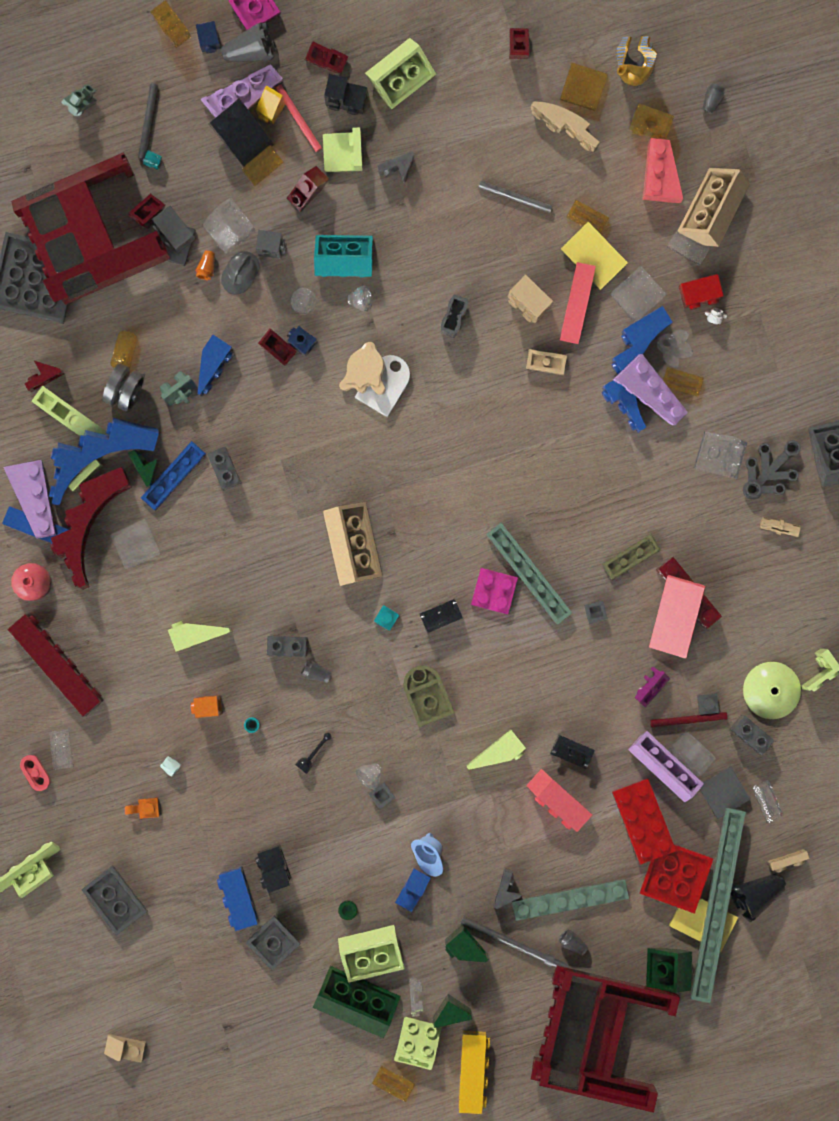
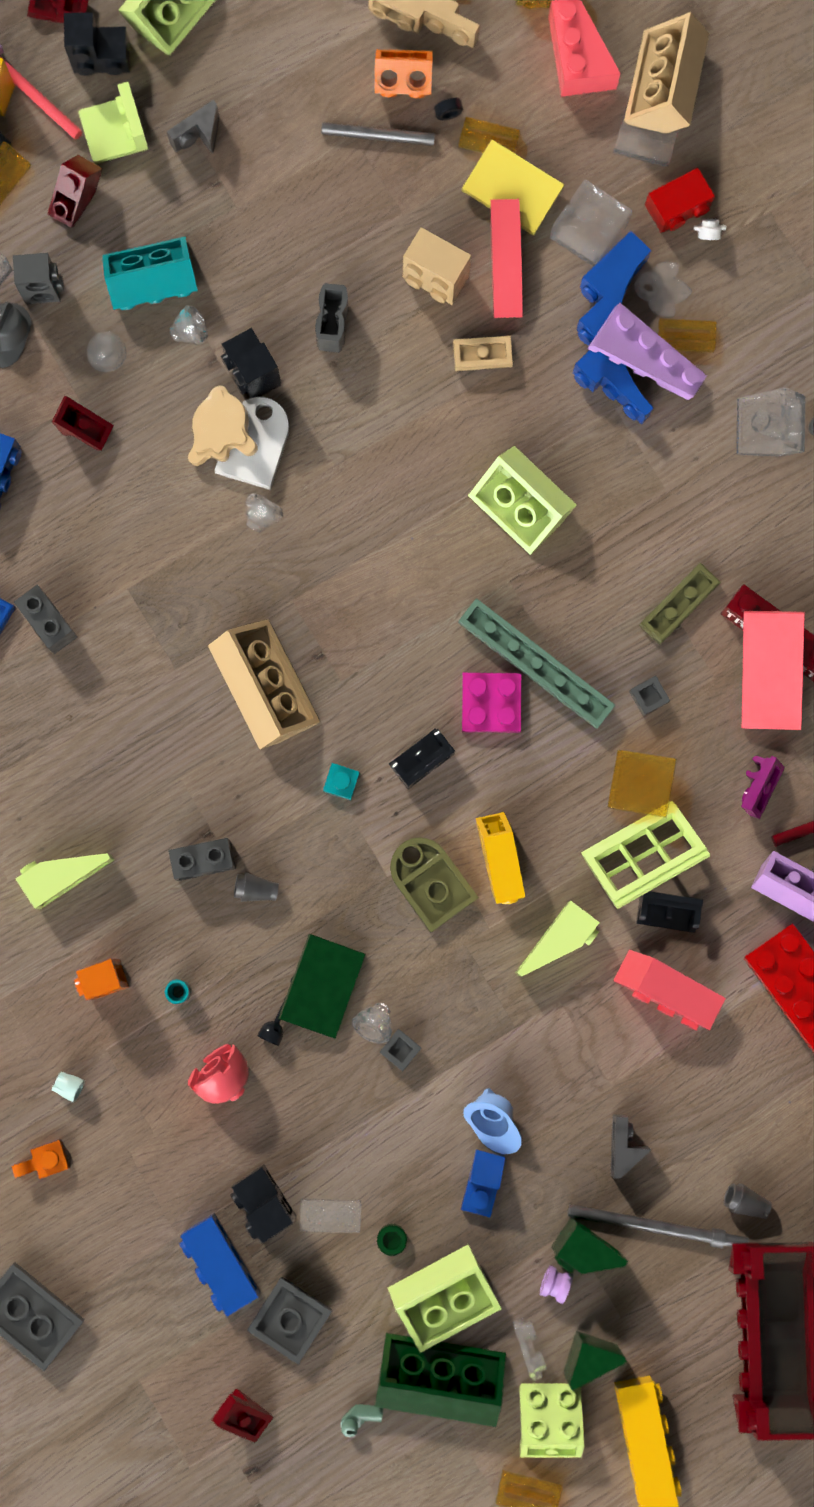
camera: 20 degrees left, 5 degrees down
(230, 993) = (242, 1416): none -> dark red slope
(266, 784) = (222, 1076): none -> coral cylinder
(301, 1010) = (357, 1416): none -> sand green arm
(305, 346) = (122, 415): dark blue brick -> none
(313, 886) = (330, 1216): none -> clear plate
(342, 743) = (321, 986): none -> dark green tile
(378, 432) = (261, 512): none -> clear brick
(394, 332) = (251, 364): none -> black brick
(442, 962) = (556, 1284): none -> lavender wheel
(474, 691) = (500, 858): none -> yellow slope
(543, 157) = (403, 64): none -> orange brick
(547, 465) = (522, 499): none -> yellowish green slope
(565, 192) = (448, 109): none -> black tile
(570, 899) = (724, 1137): sand green plate -> none
(571, 728) = (657, 876): none -> yellowish green piece
(576, 666) = (642, 783): none -> clear yellow tile

